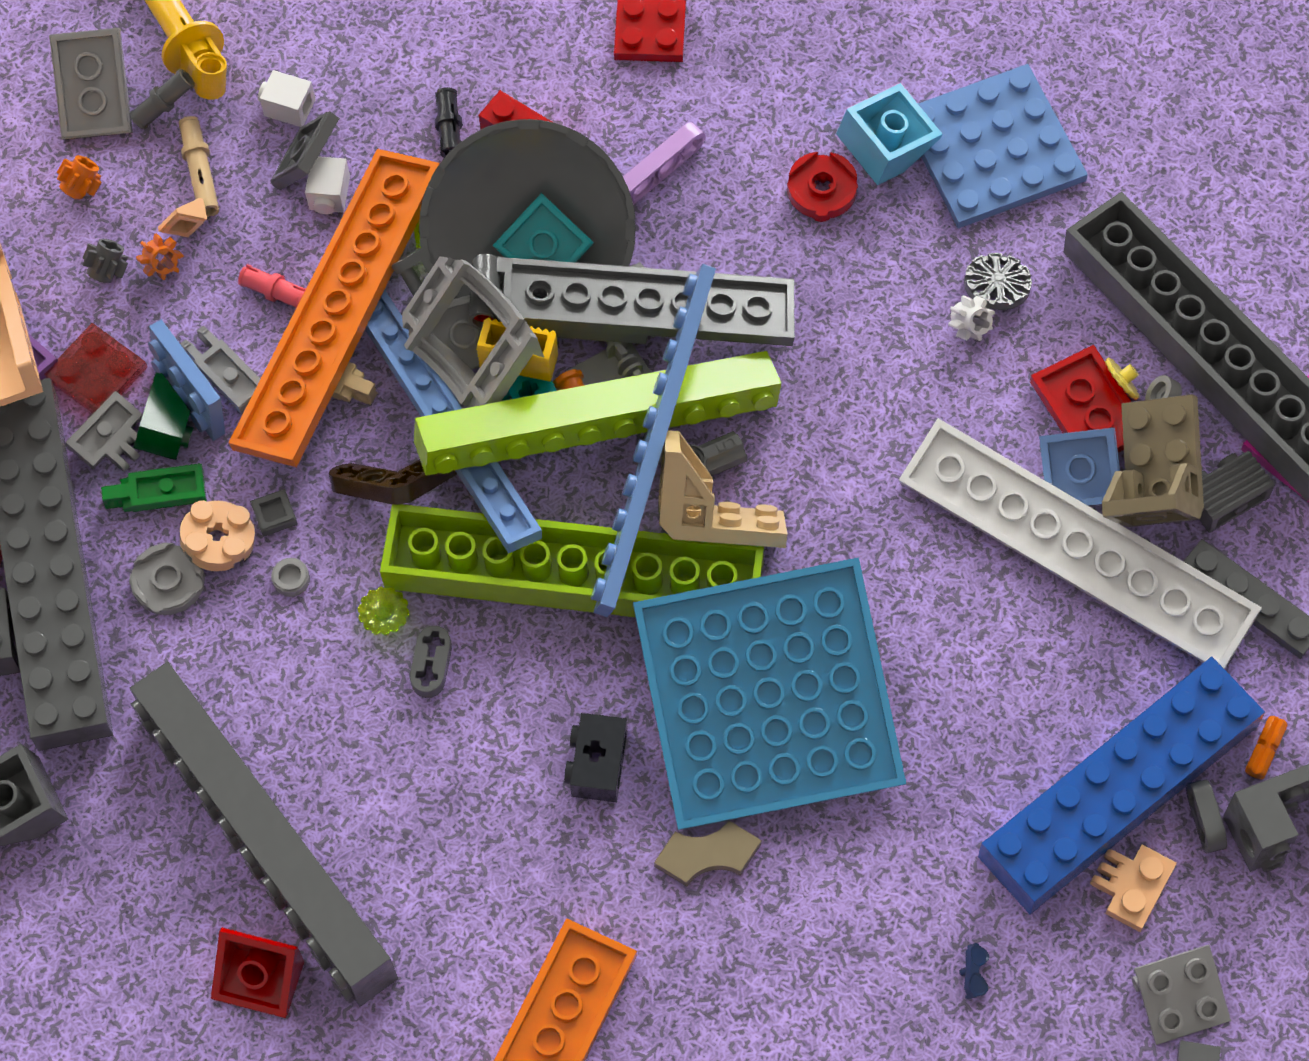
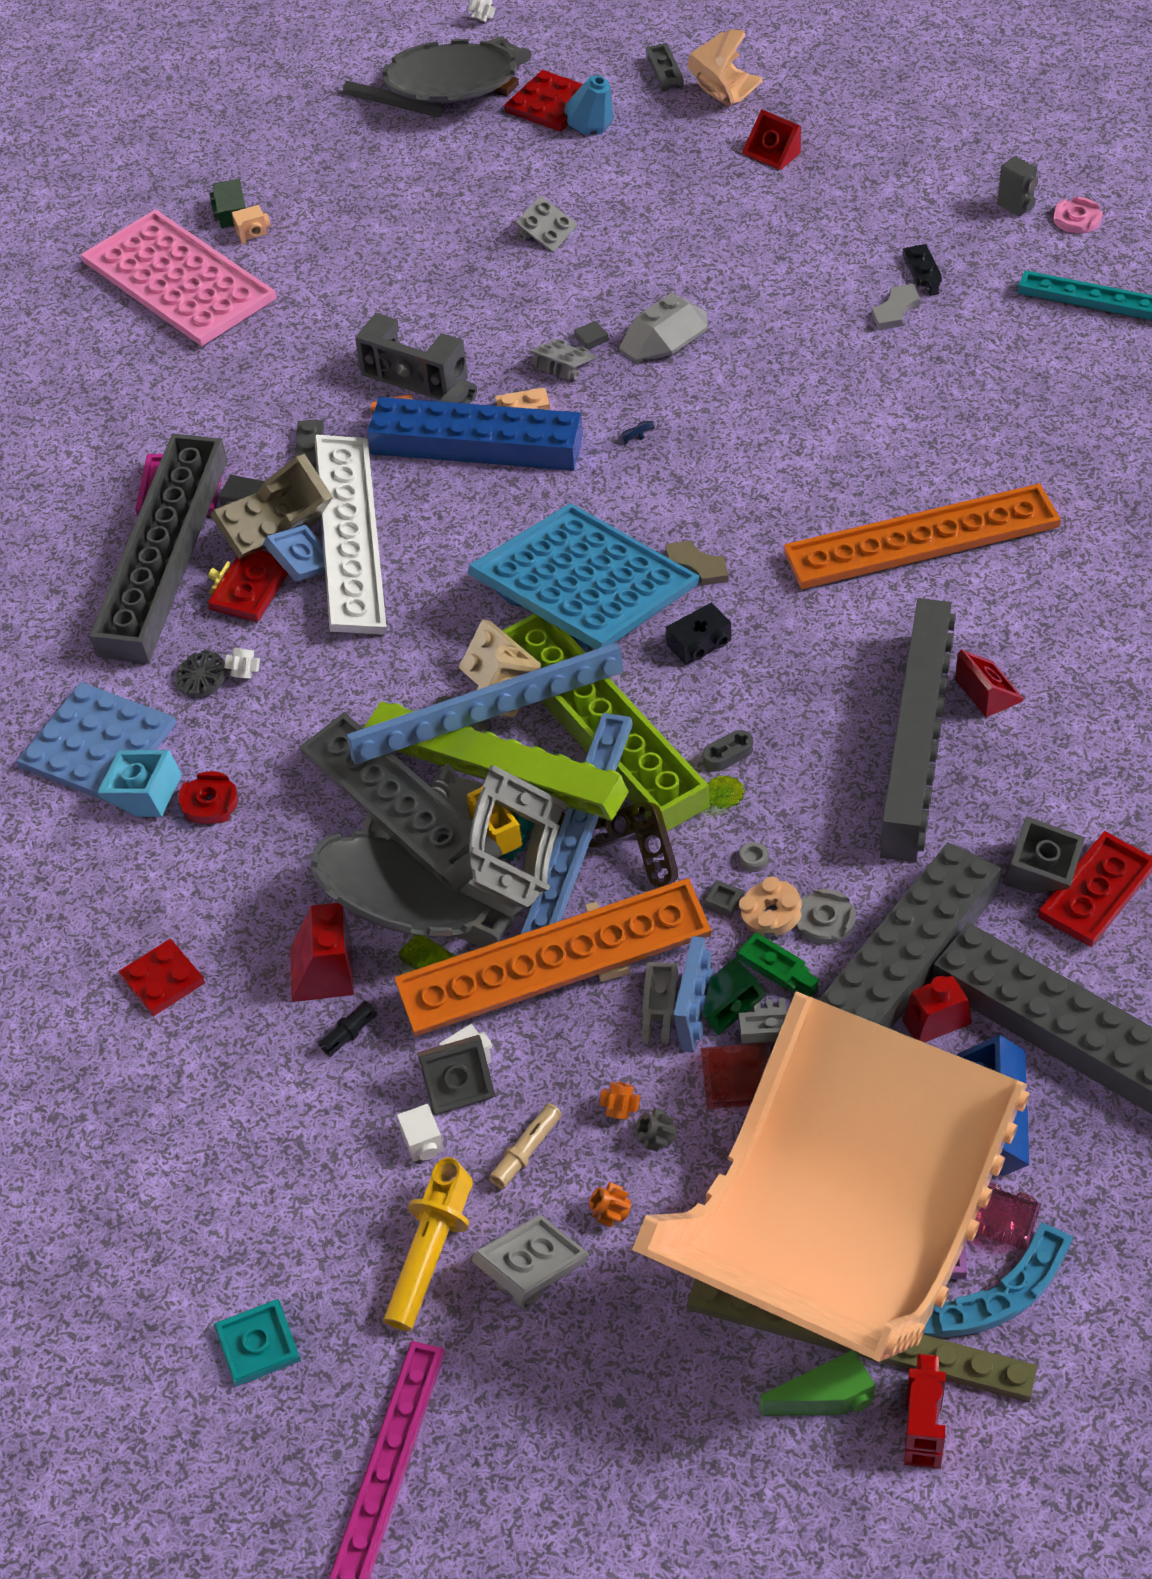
camera: 130 degrees left, 15 degrees down
(162, 99) = (497, 1202): dark grey pin -> none
(185, 219) = (575, 1111): light nougat slope -> none
(272, 286) = (572, 1022): coral pin -> none
(543, 234) = (399, 880): teal tile -> none
(664, 160) = (252, 887): lavender beam -> none
(1163, 388) = (218, 556): light grey tile -> none

